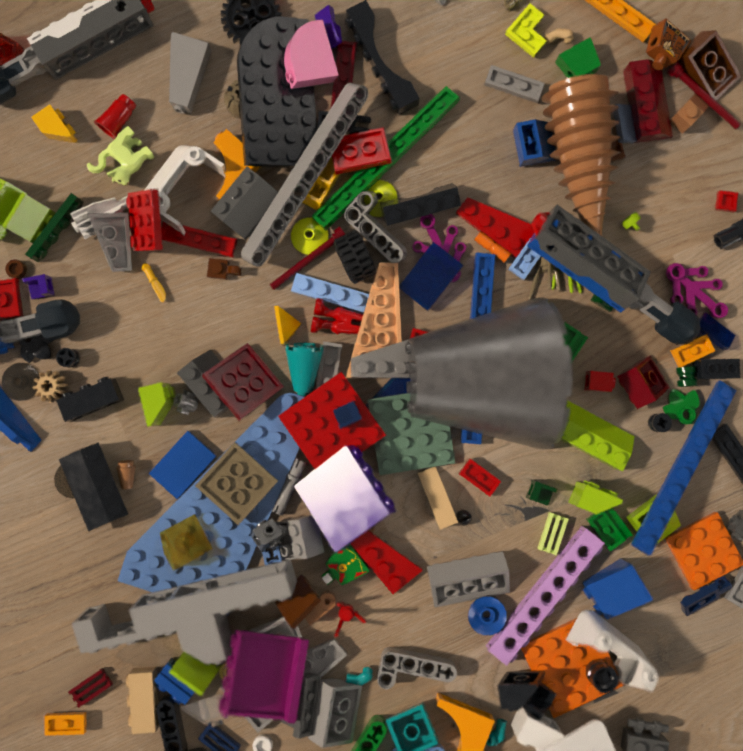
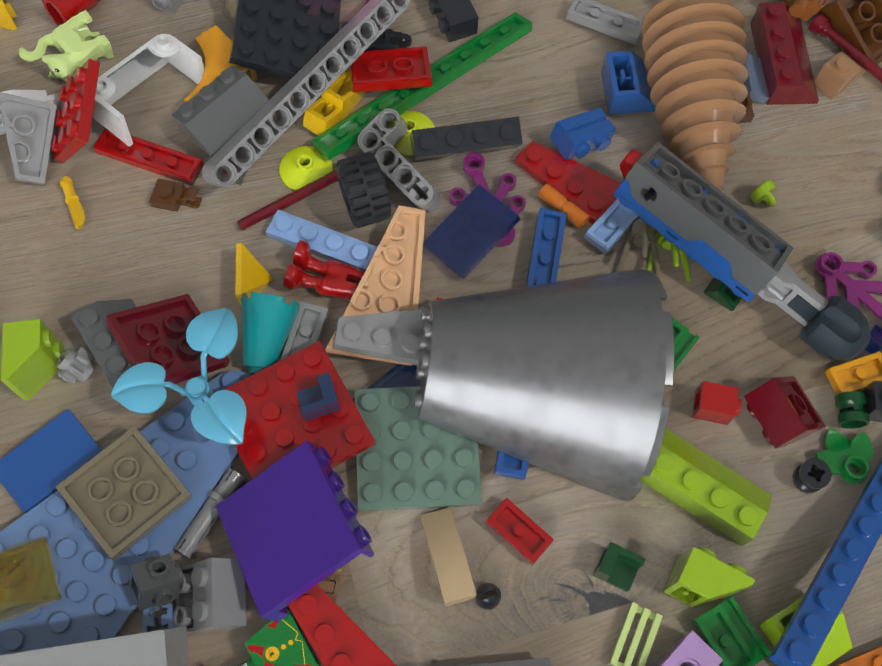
camera: 10 degrees right, 20 degrees down
(238, 423) = (215, 415): none -> medium azure plant
(503, 189) = (582, 134): none -> blue brick

